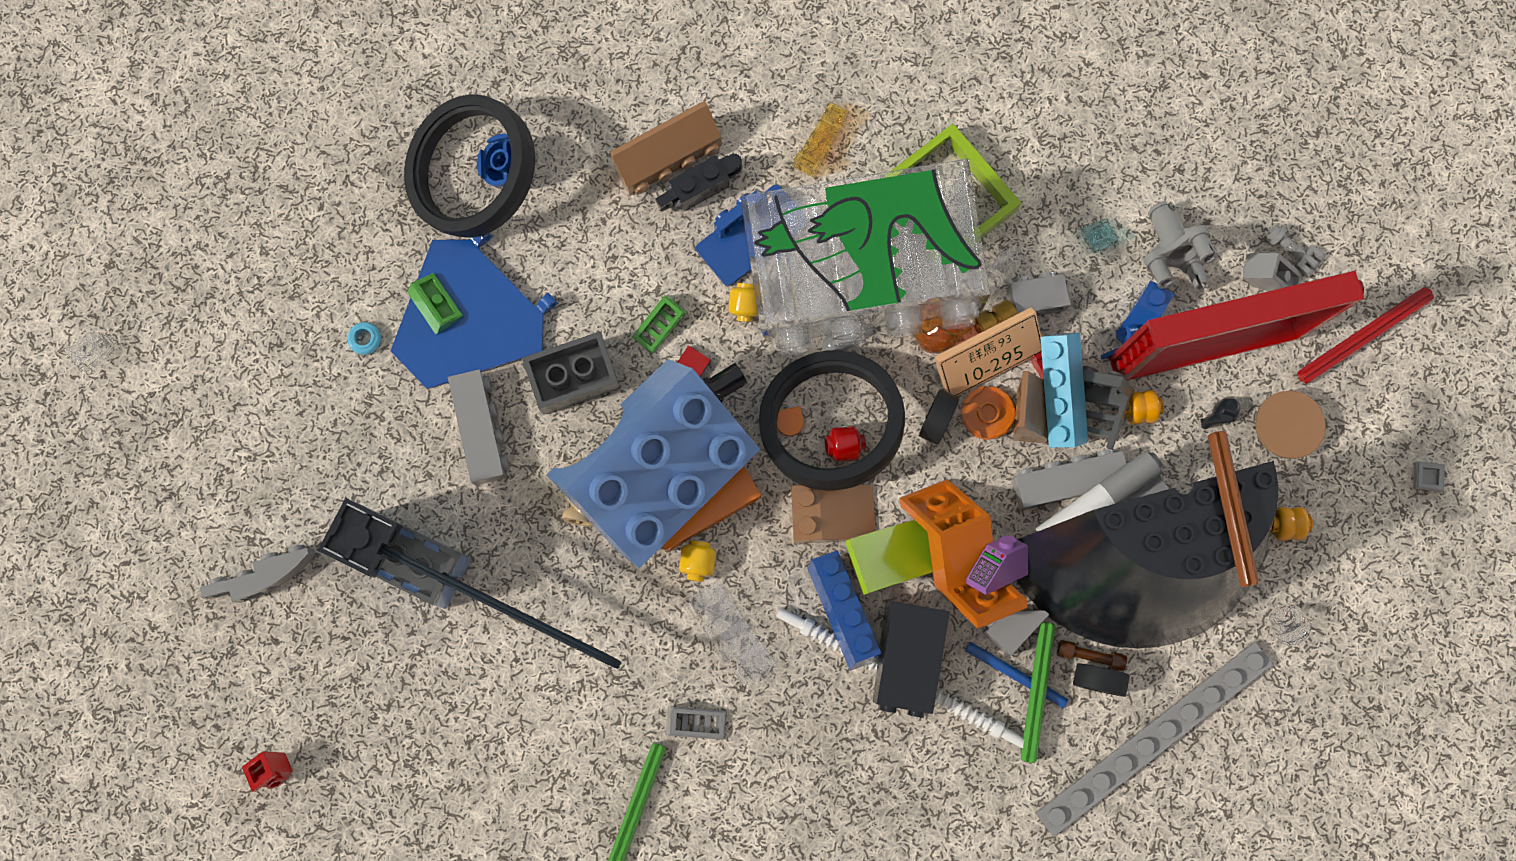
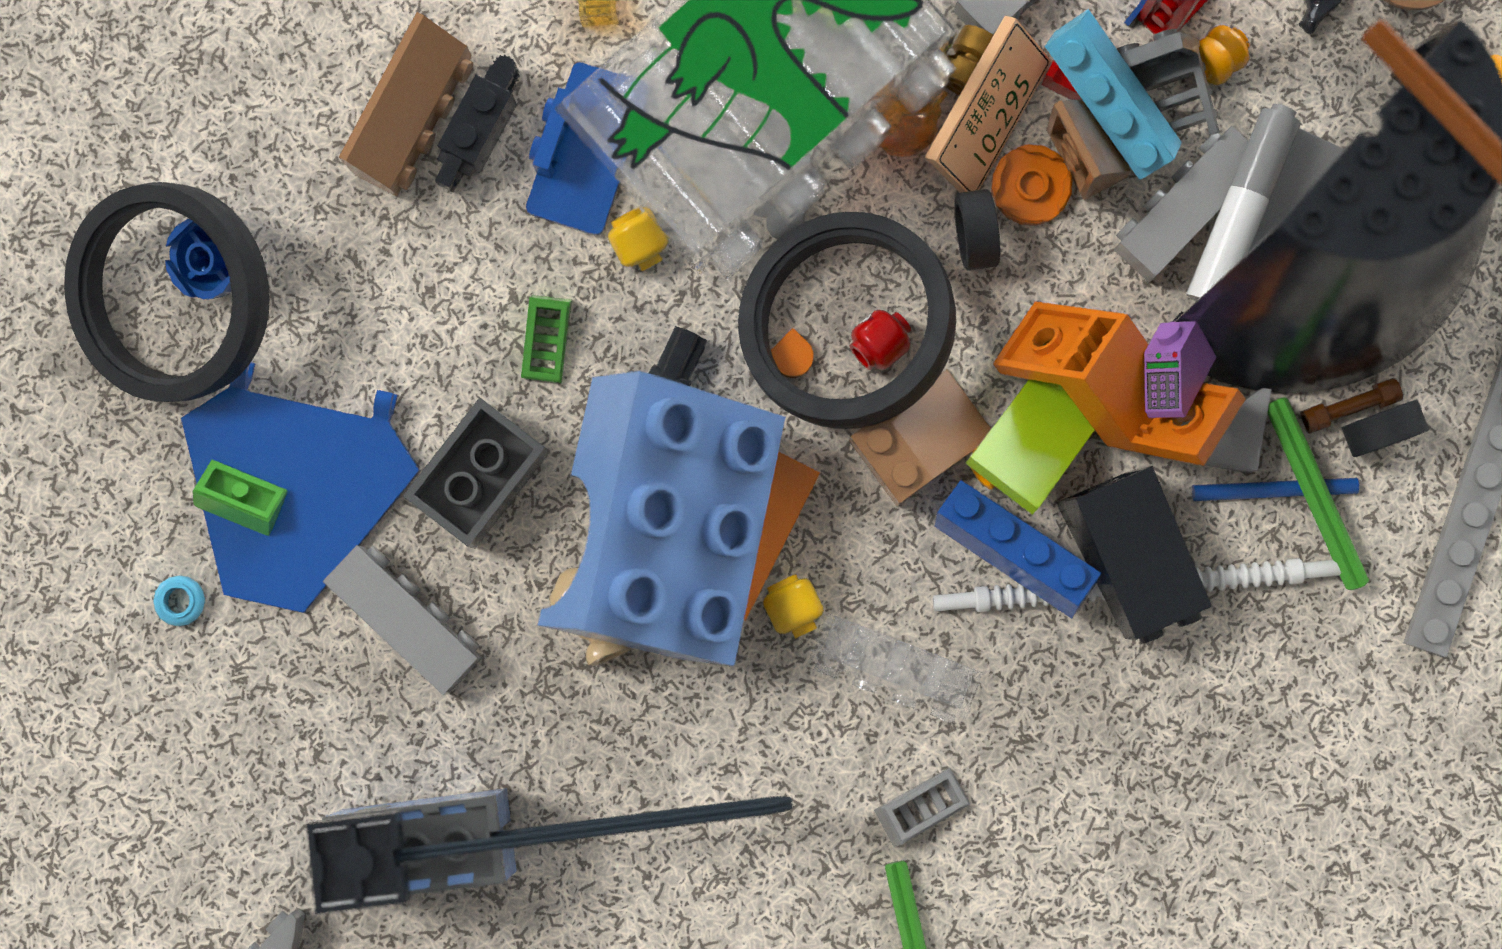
camera: 30 degrees left, 5 degrees up
(694, 360) = (620, 357): red tile -> none

